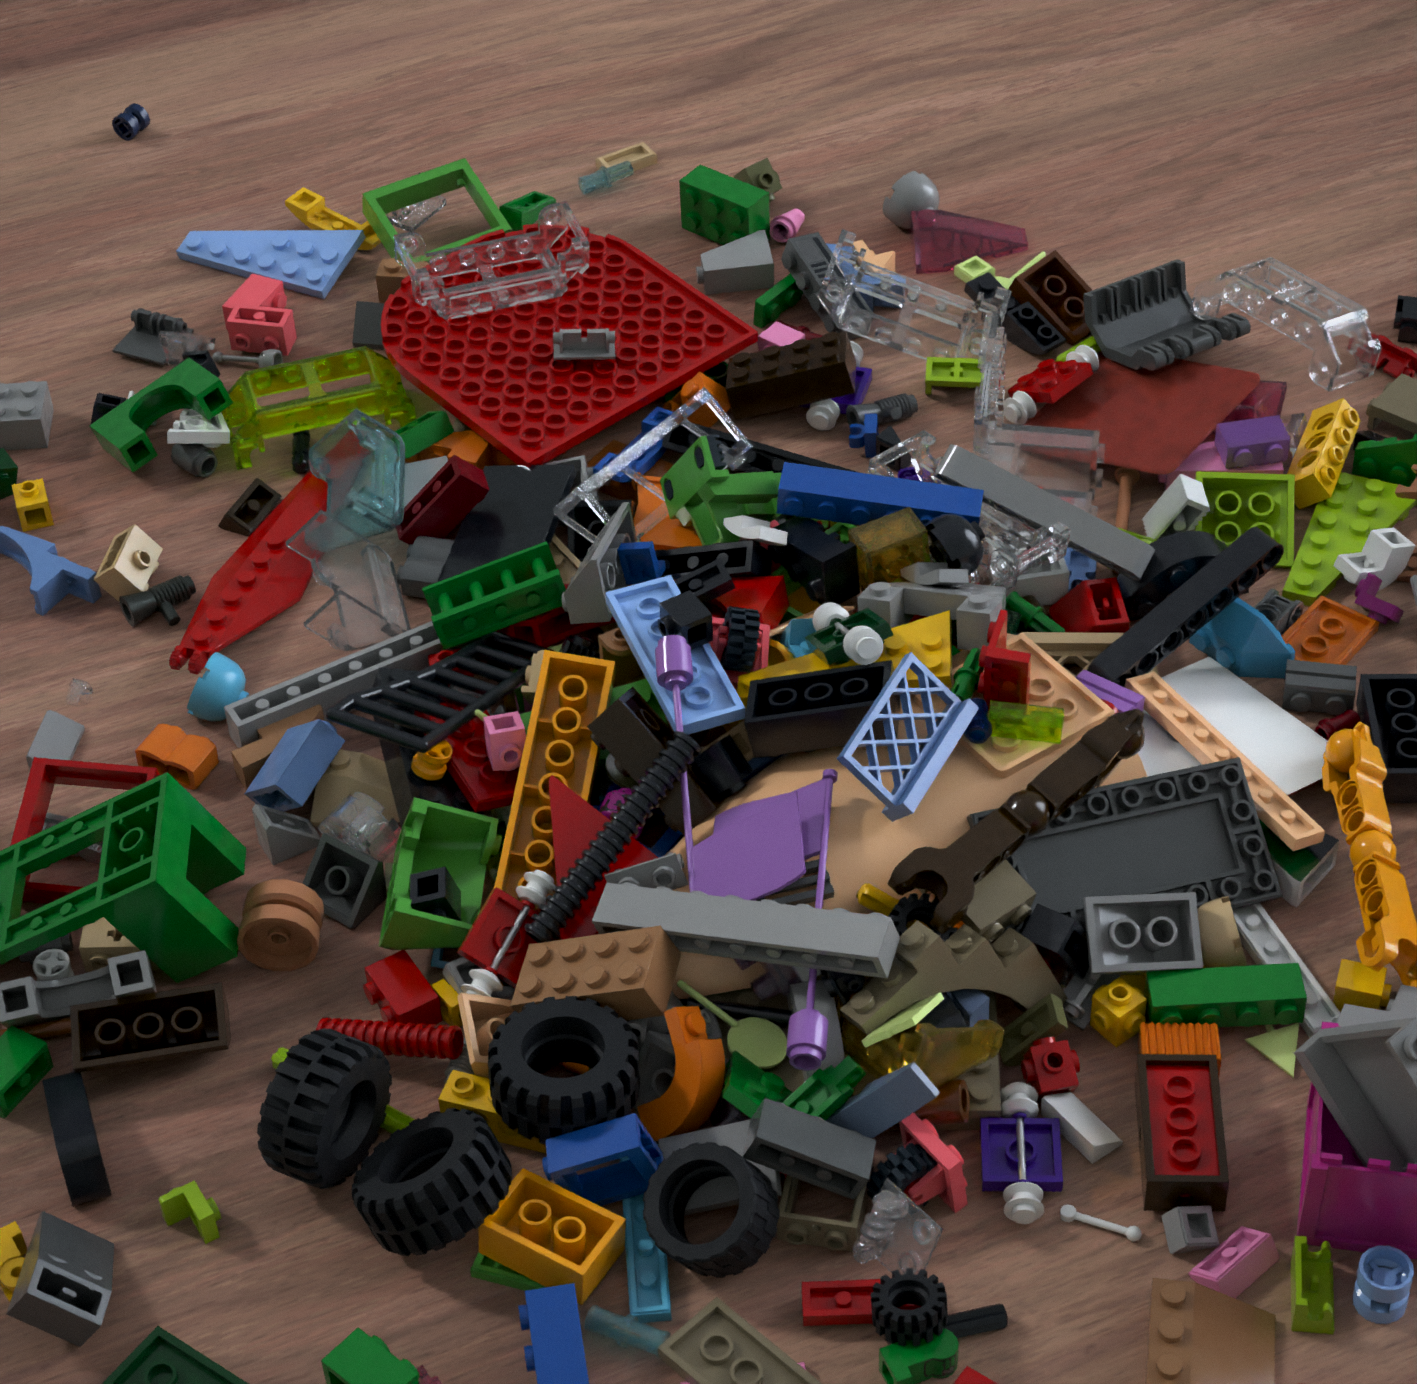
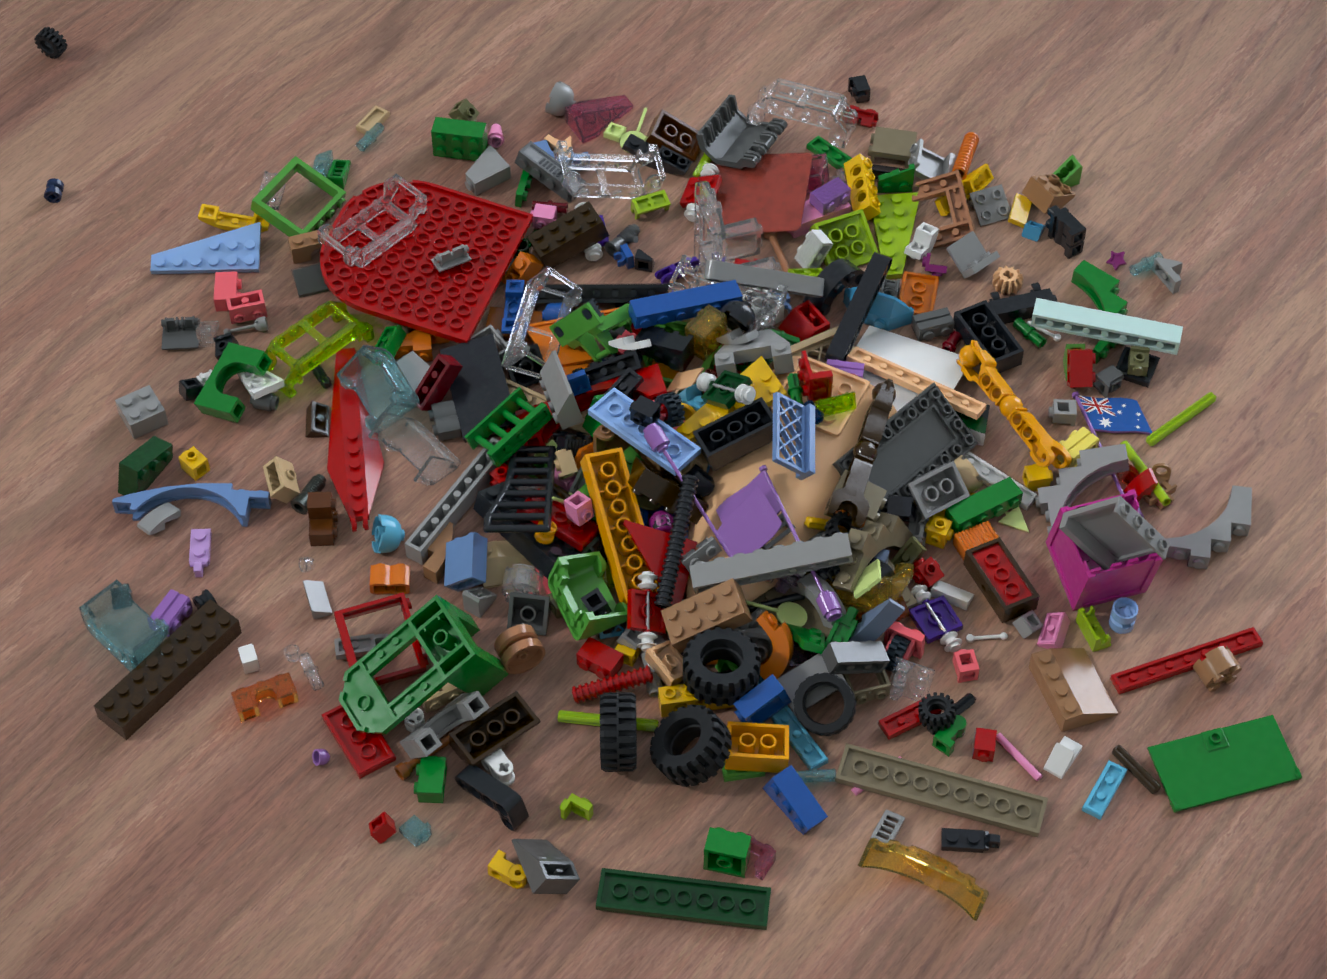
camera: 30 degrees left, 10 degrees up
(124, 1096) = (500, 767): none -> white piece
(144, 635) = (322, 518): none -> reddish brown brick
(516, 189) = (323, 162): none -> clear light blue slope
(1023, 1253) = (966, 665): none -> coral brick
(1301, 390) = (834, 156): none -> green tile

